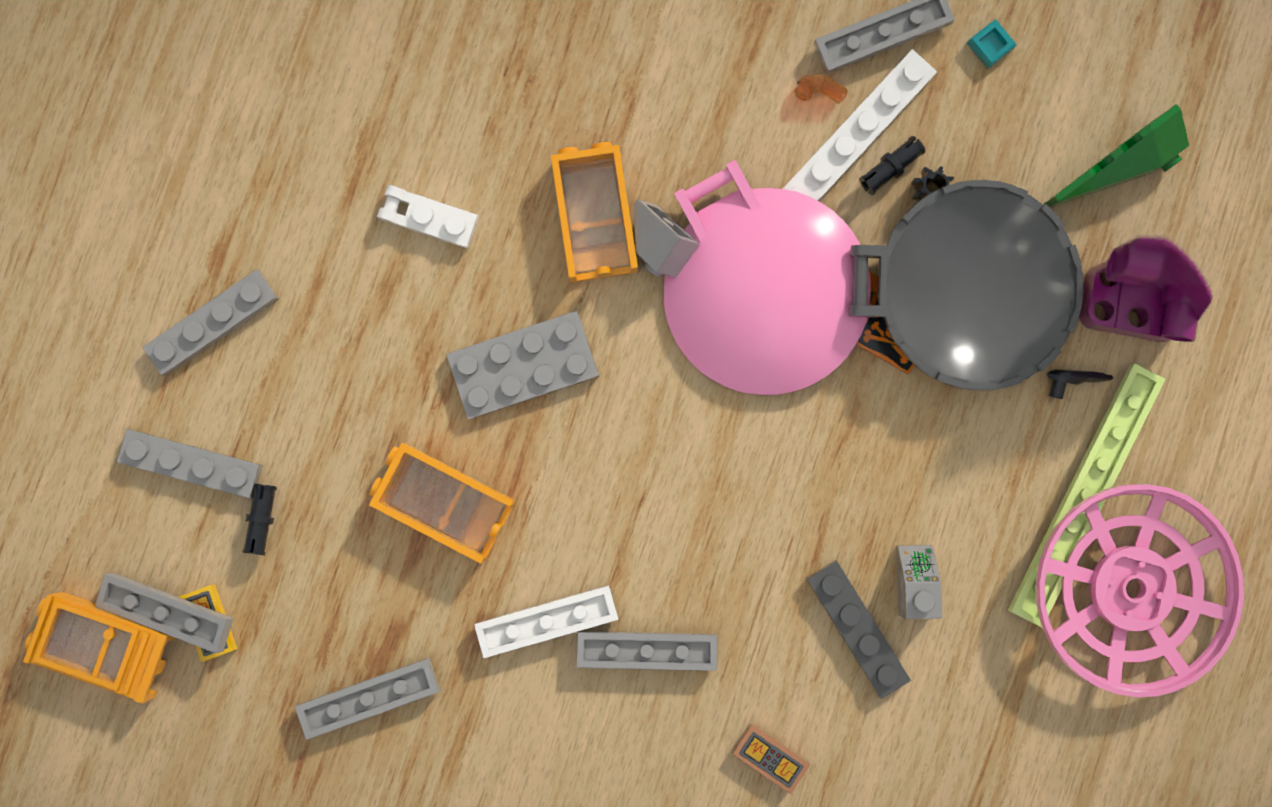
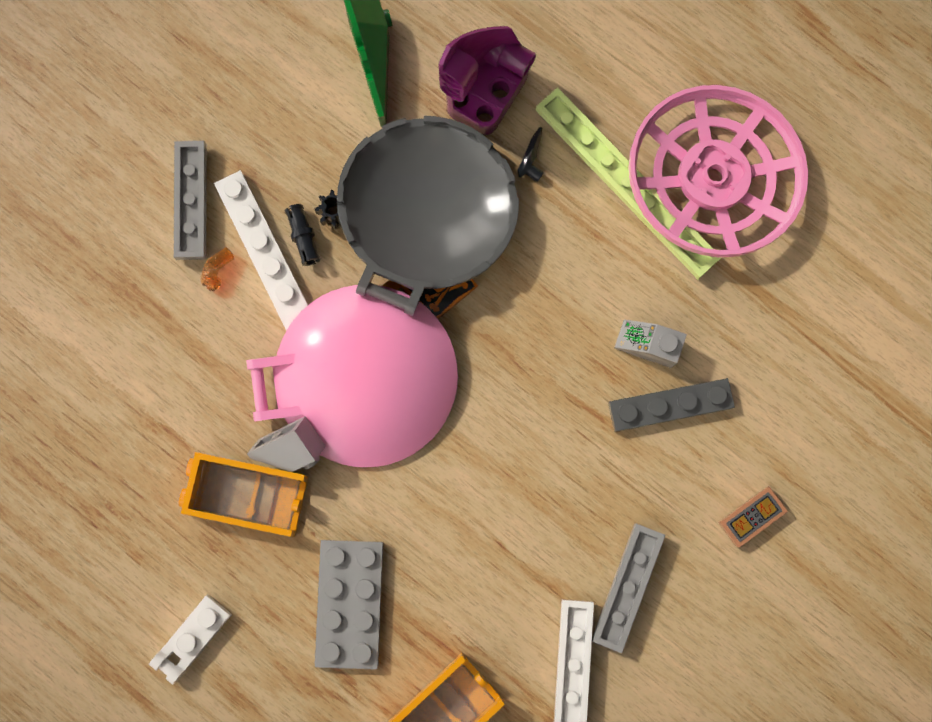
camera: 75 degrees left, 5 degrees down
(991, 43) = (235, 119): teal tile -> none

